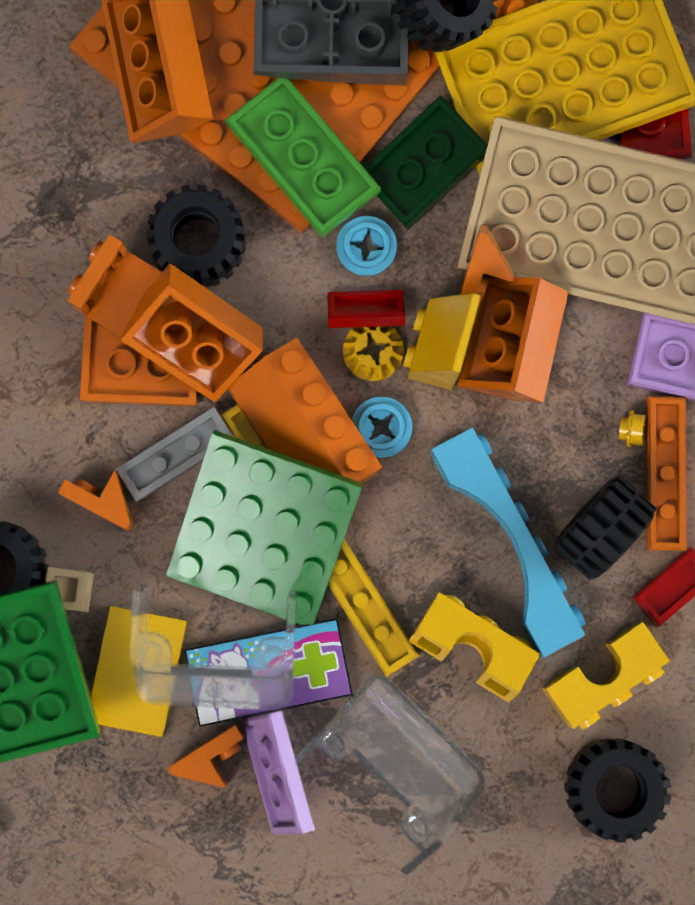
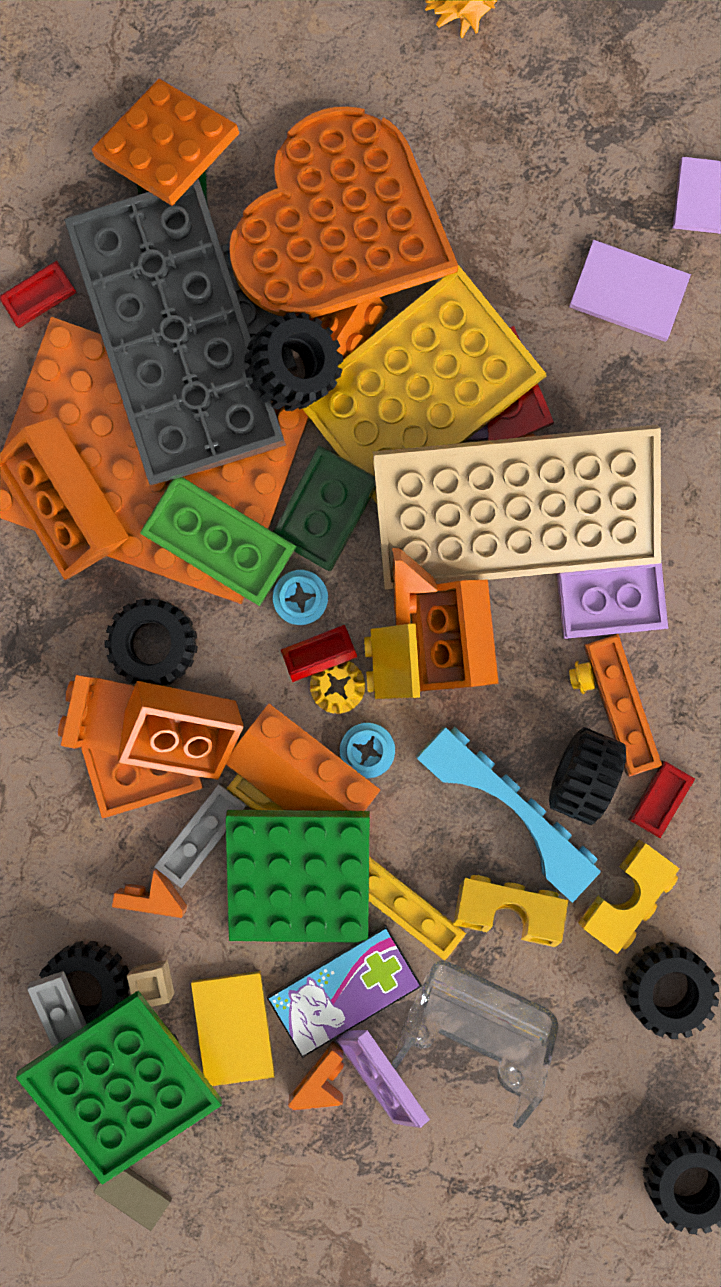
camera: 15 degrees left, 5 degrees up
(262, 686) = (342, 1008): clear windscreen -> none

